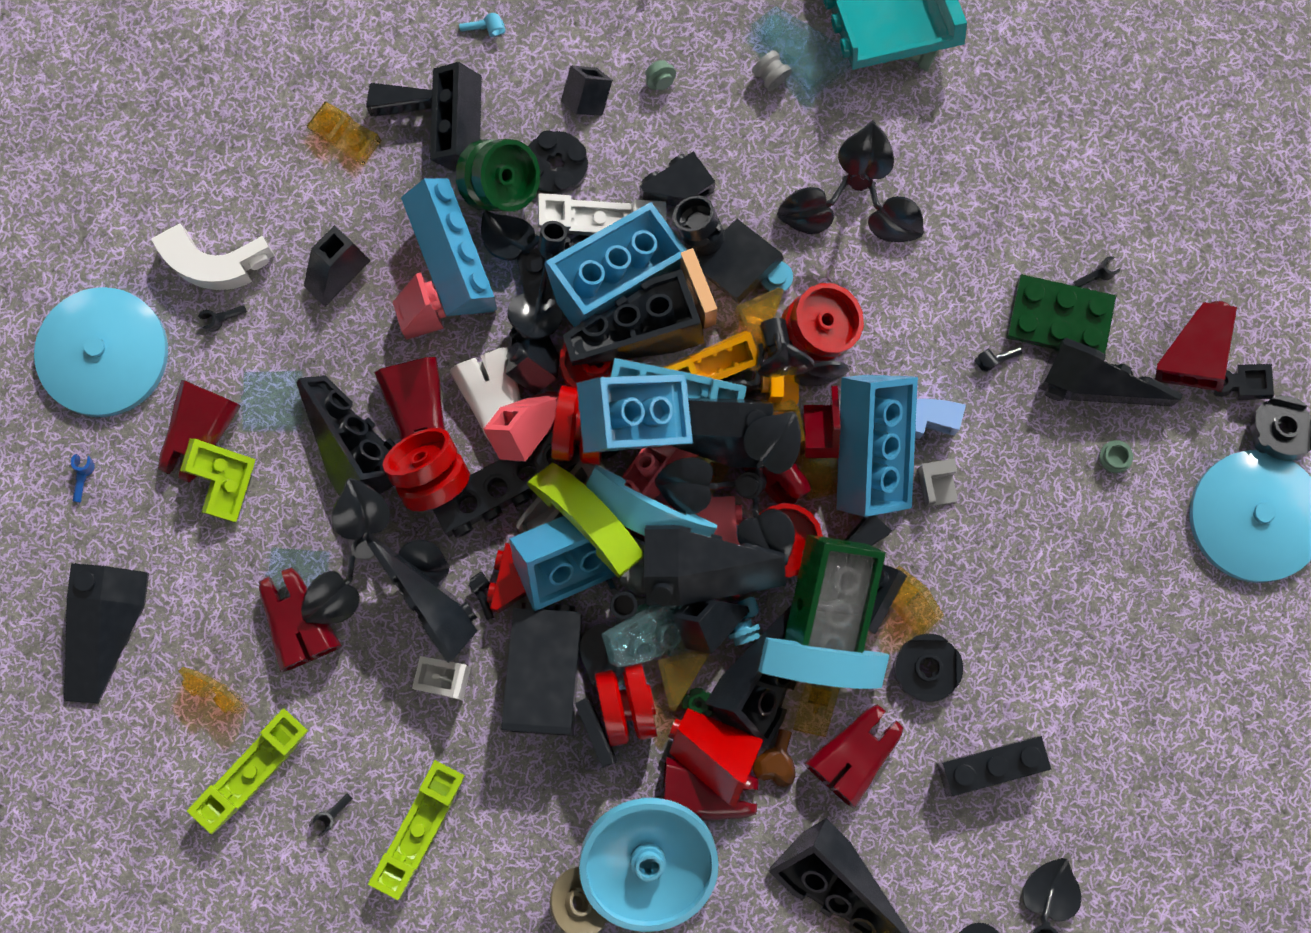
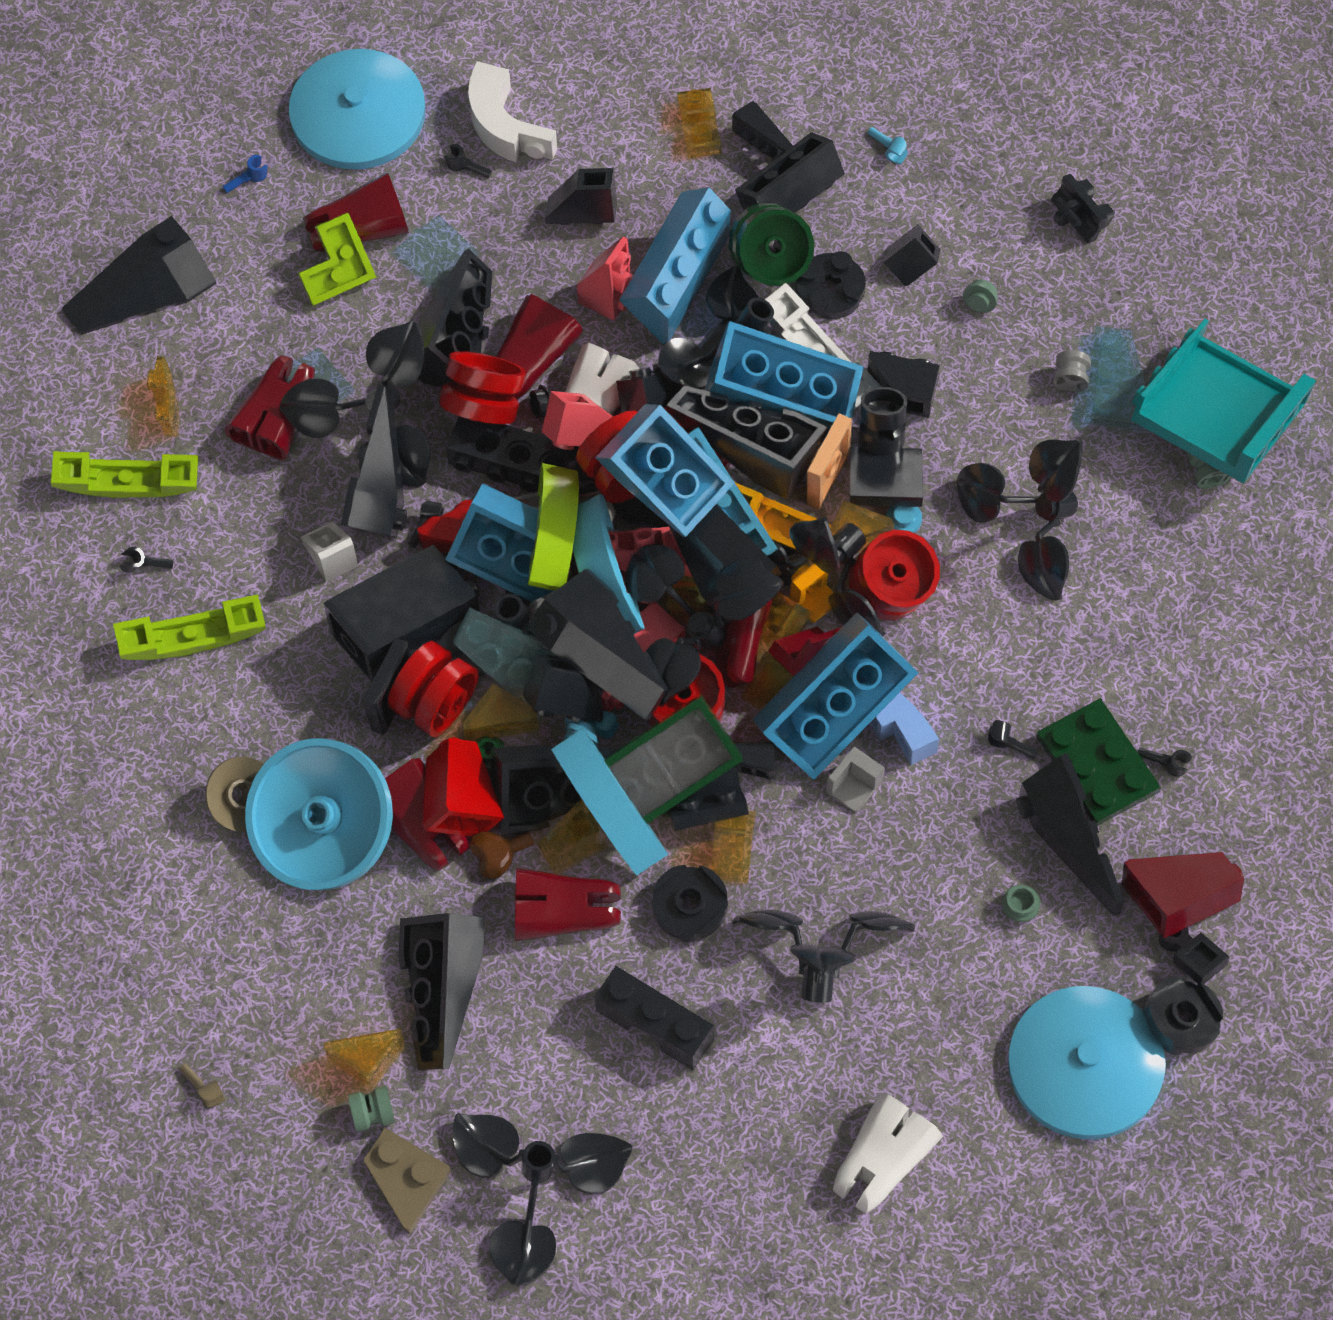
camera: 50 degrees right, 15 degrees down
(465, 433) = (539, 401): none -> black plate
(1066, 633) = (817, 963): none -> black plant
(1212, 700) = (885, 1151): none -> white piece

